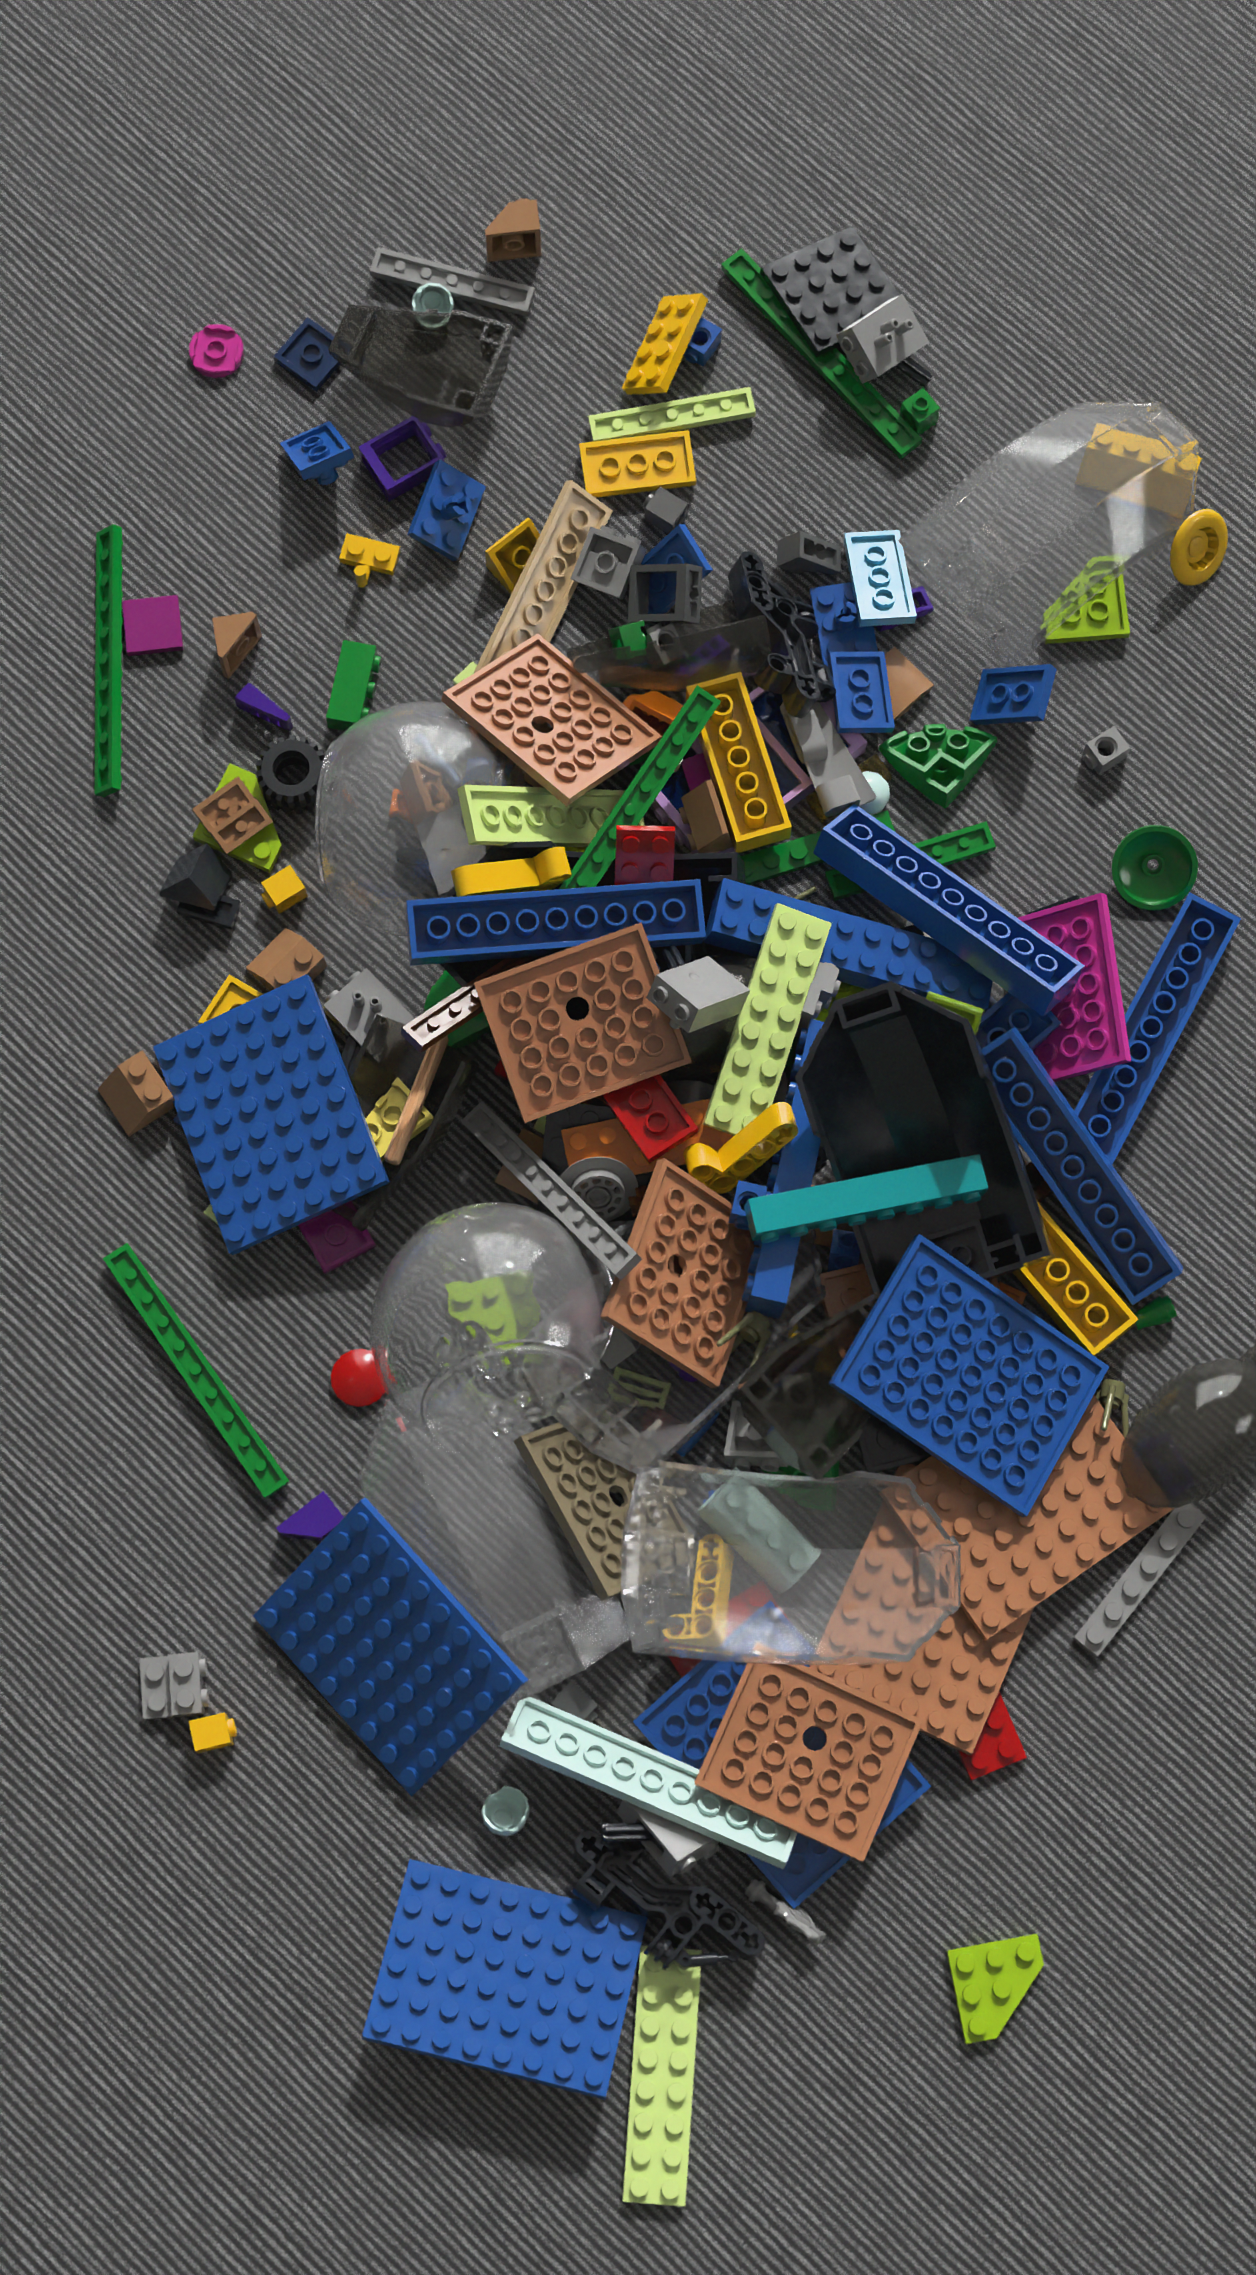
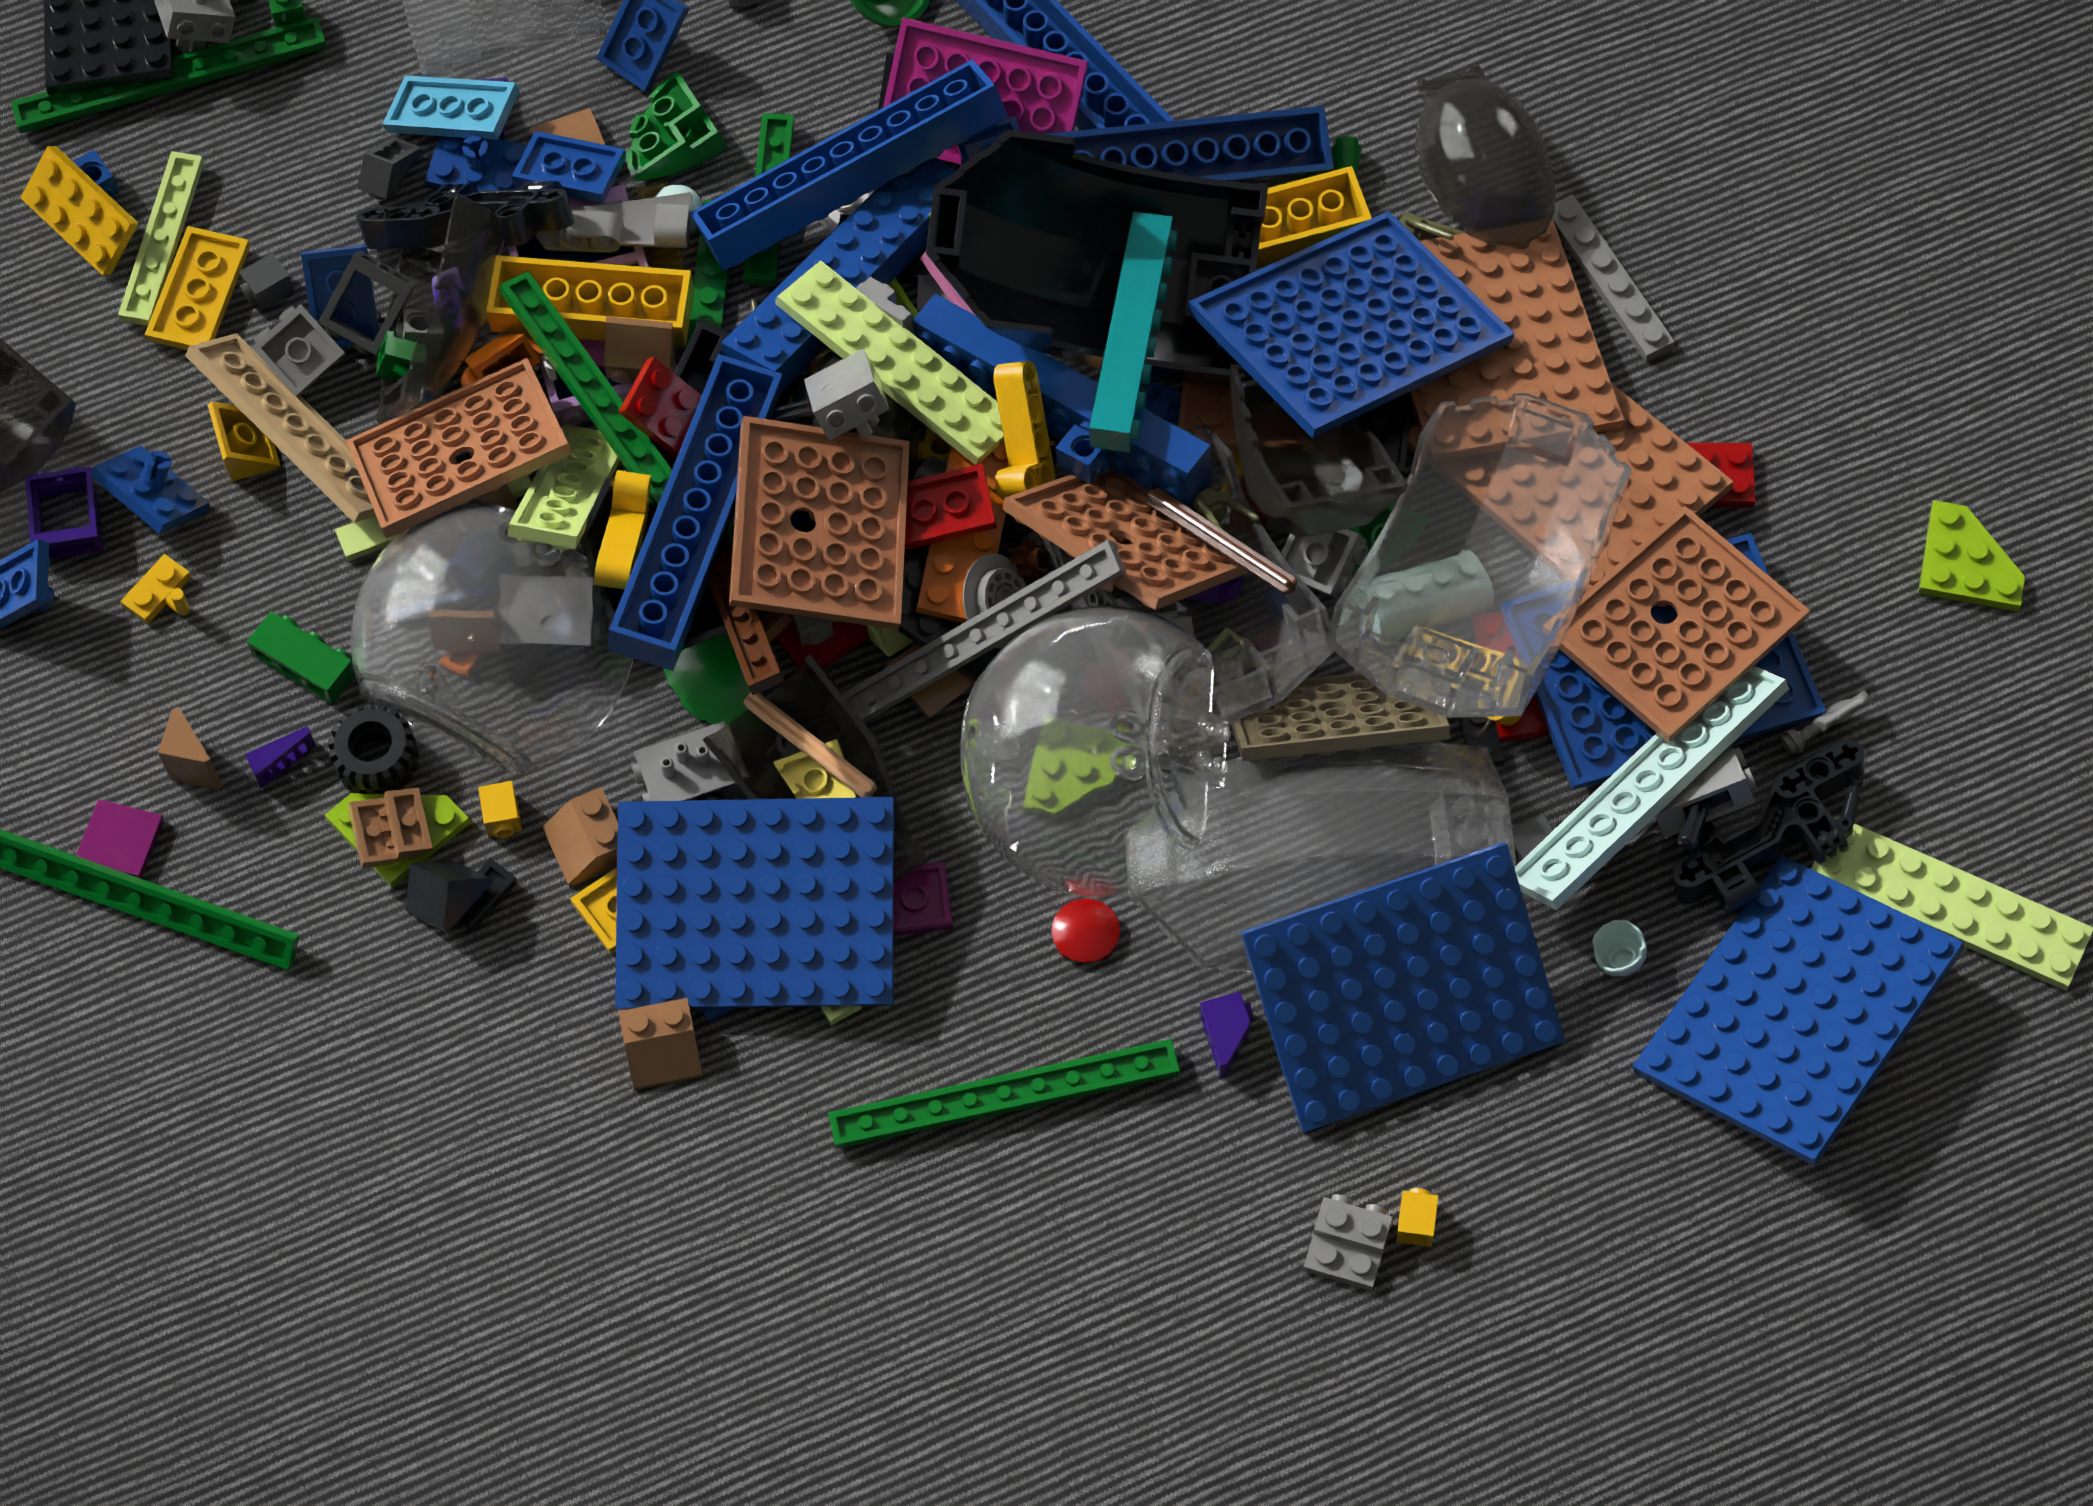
camera: 65 degrees left, 10 degrees down
(707, 1348) = (1222, 541): none -> axle

